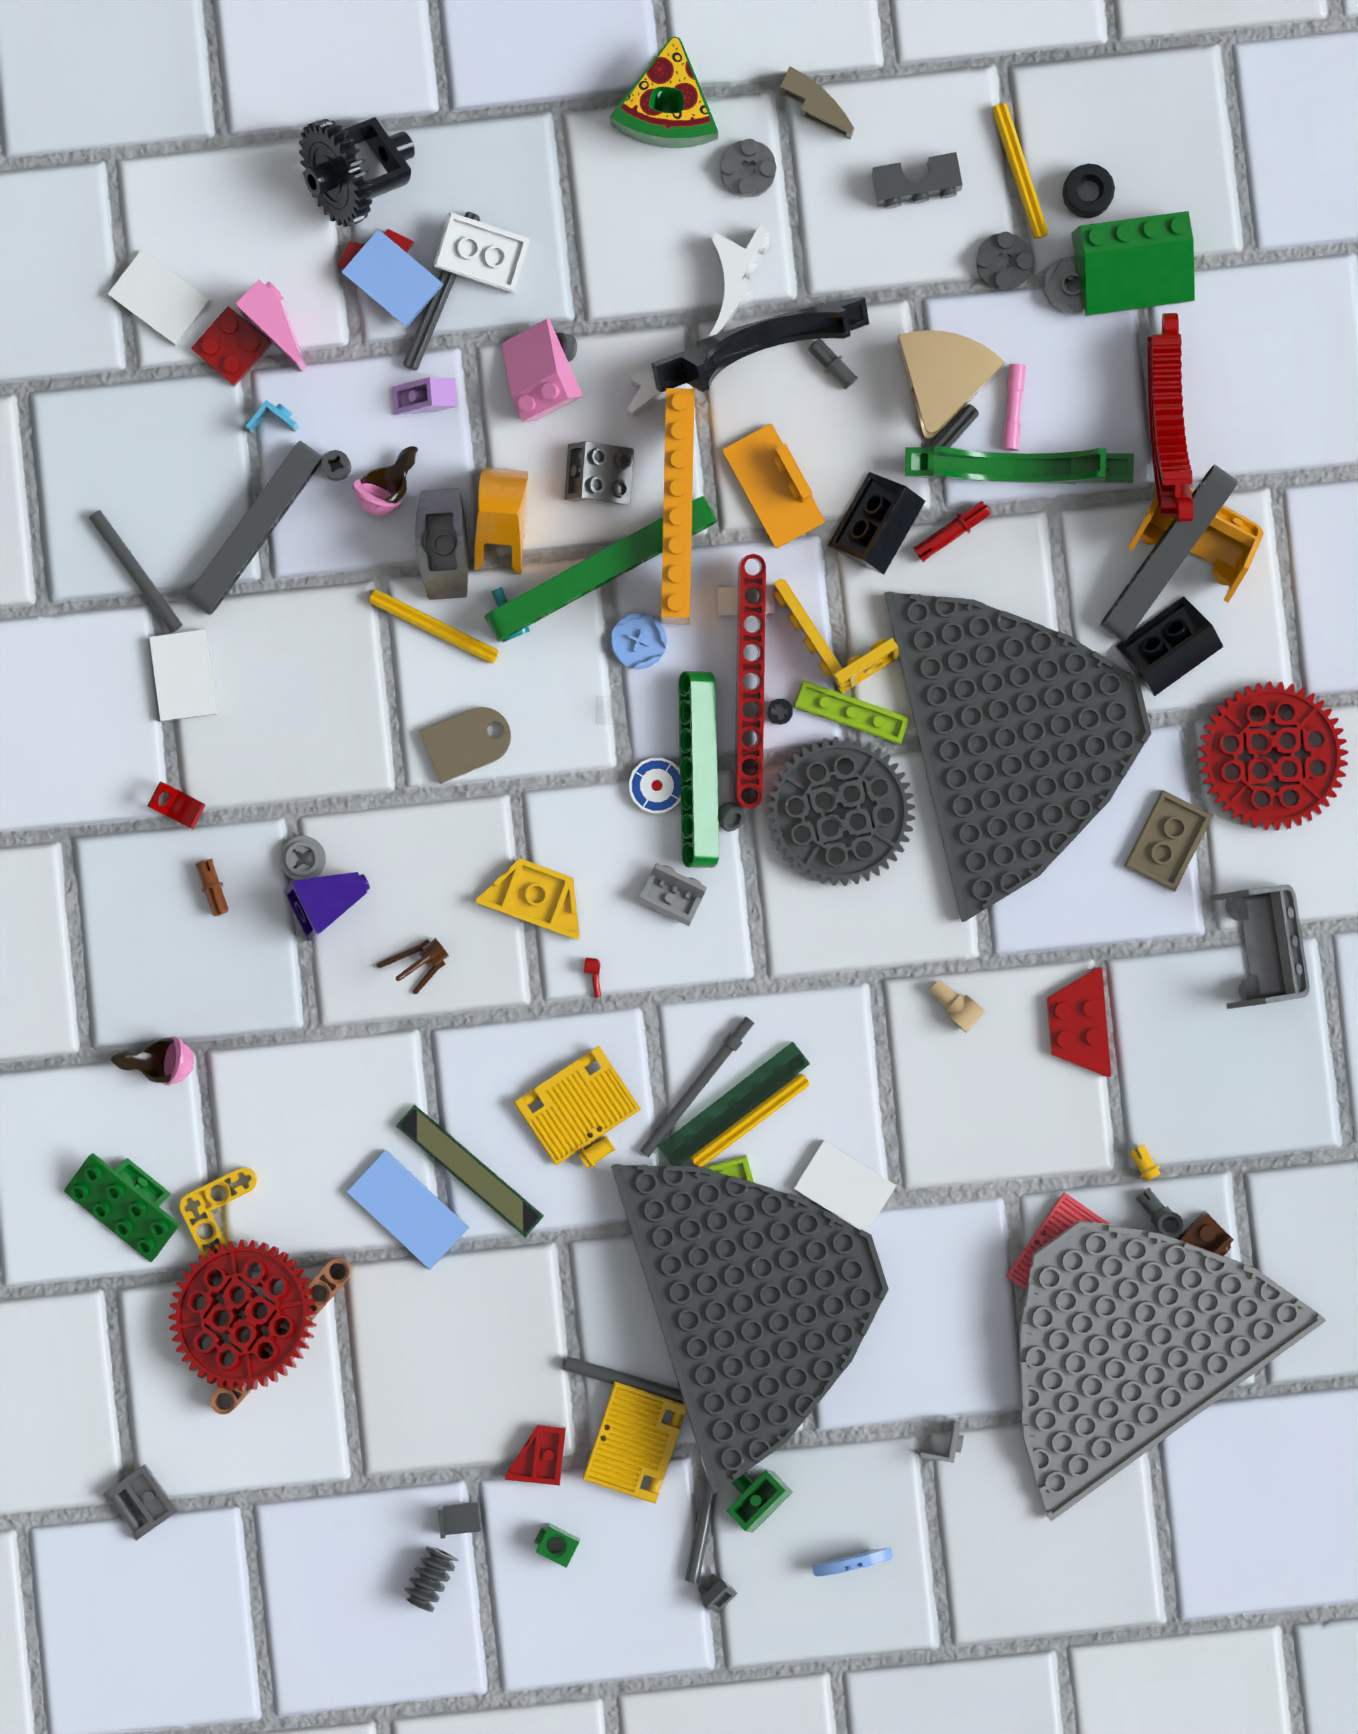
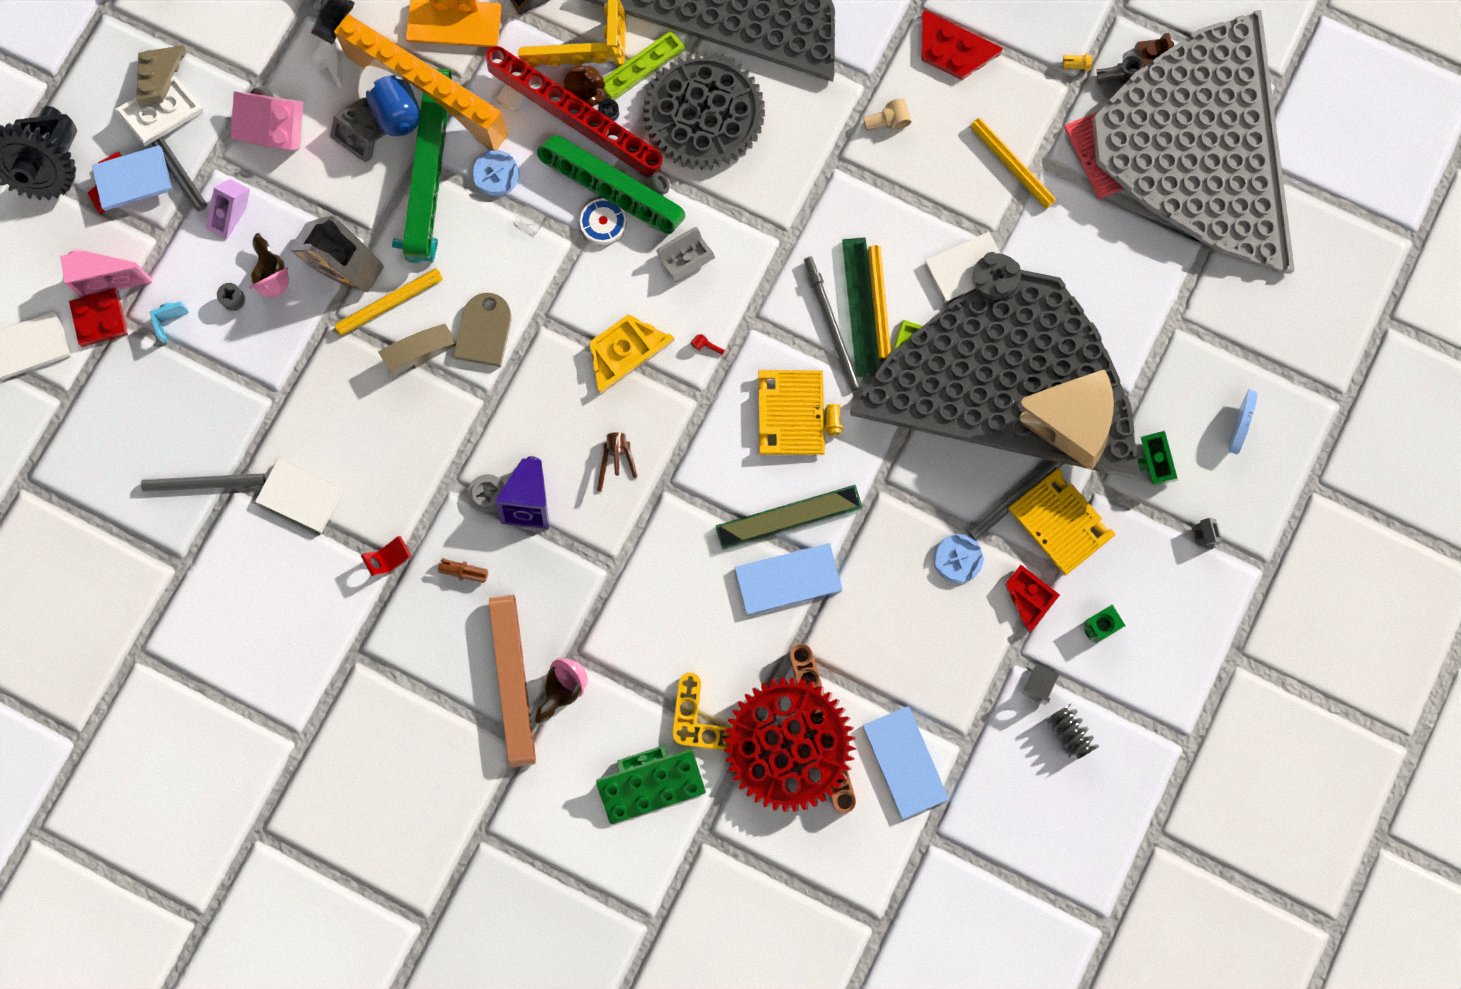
camera: 60 degrees left, 10 degrees down
(137, 1007) = (512, 681): none -> nougat beam
(147, 1496) = (881, 907): flat silver plate -> none
(255, 528) = (233, 379): dark grey beam -> none
(301, 1435) = (905, 762): none -> light blue tile
(403, 691) = (417, 349): none -> dark tan slope
(501, 513) = (343, 198): light orange piece -> none
(516, 221) = (155, 73): none -> dark tan wing
(535, 1363) = (958, 558): none -> light blue tile
(631, 499) = (394, 106): none -> blue cylinder
(701, 1534) = (1147, 509): dark grey piece -> none
(732, 1395) = (1073, 416): none -> tan piece
(786, 673) = (585, 84): none -> reddish brown hair
(859, 1211) = (996, 263): none -> dark grey plate
(955, 1445) = (1198, 303): light grey bracket -> none
(989, 1163) = (1013, 163): none -> yellow axle

